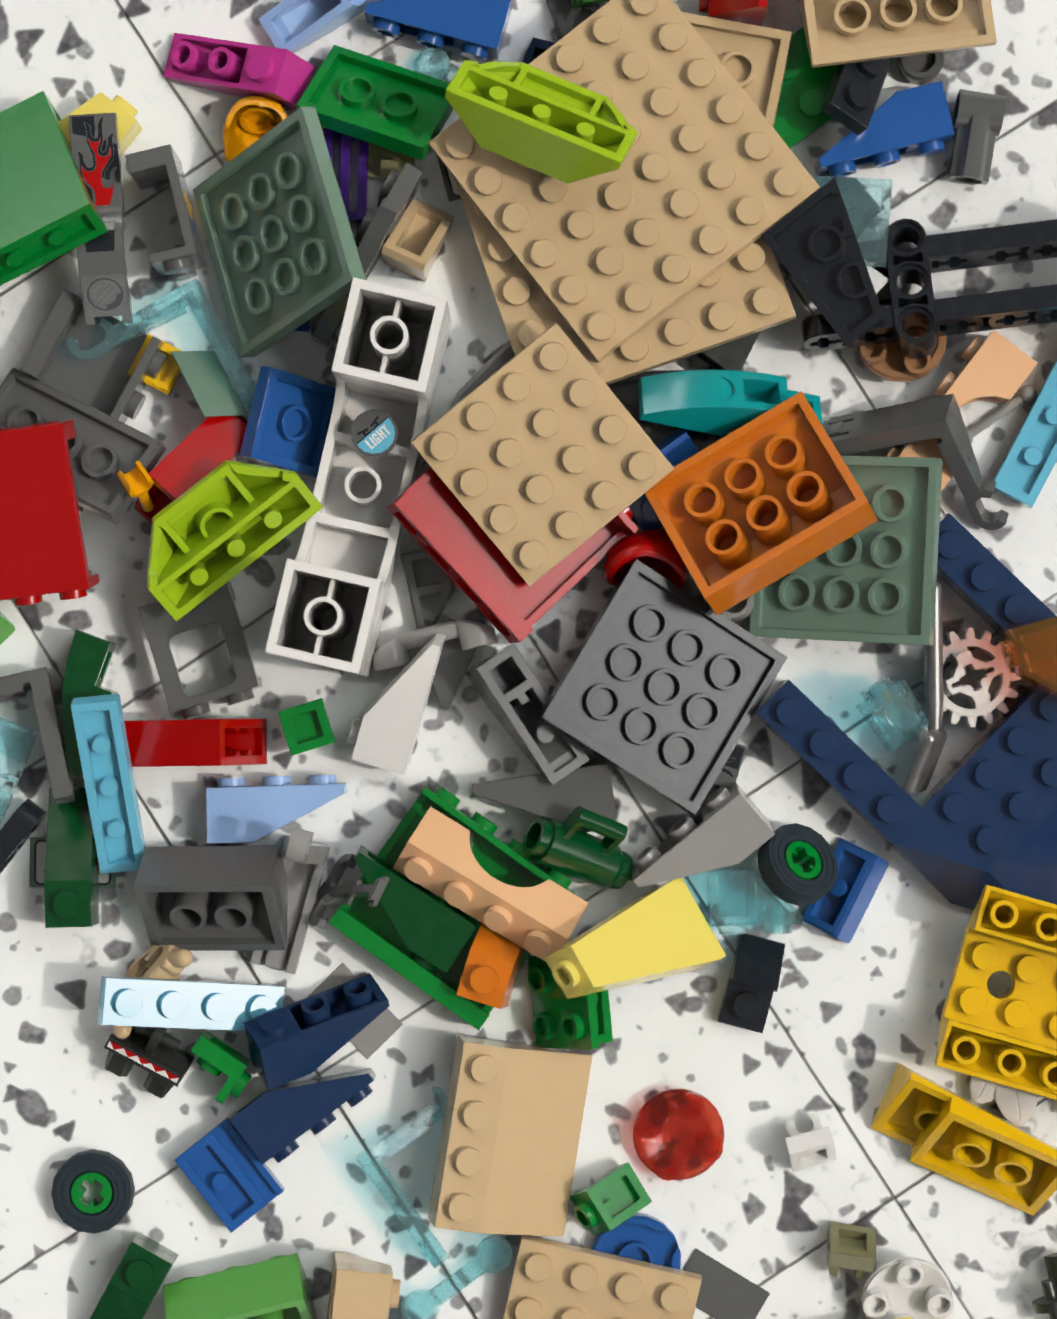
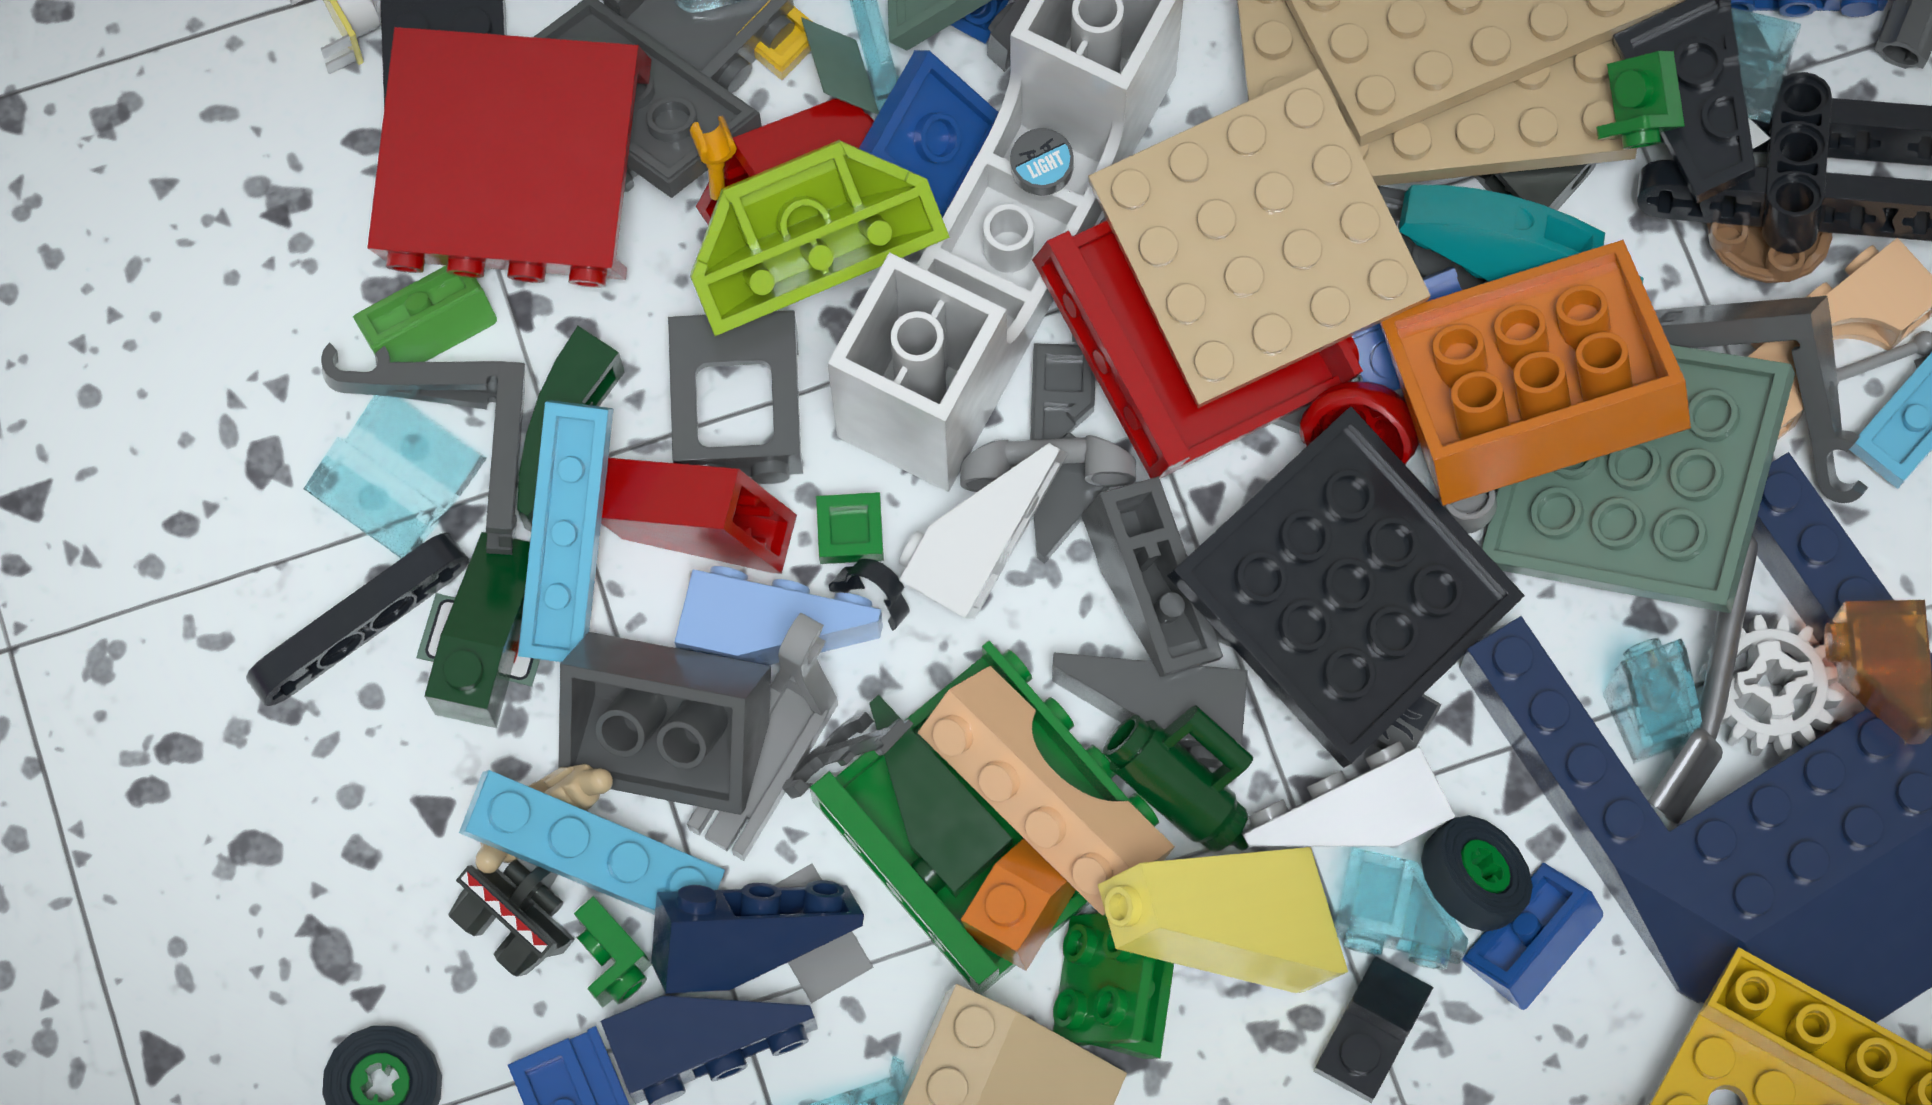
camera: 10 degrees right, 15 degrees down
(335, 758) = (883, 577): none -> black piece
(794, 286) = (1643, 100): none -> green bracket

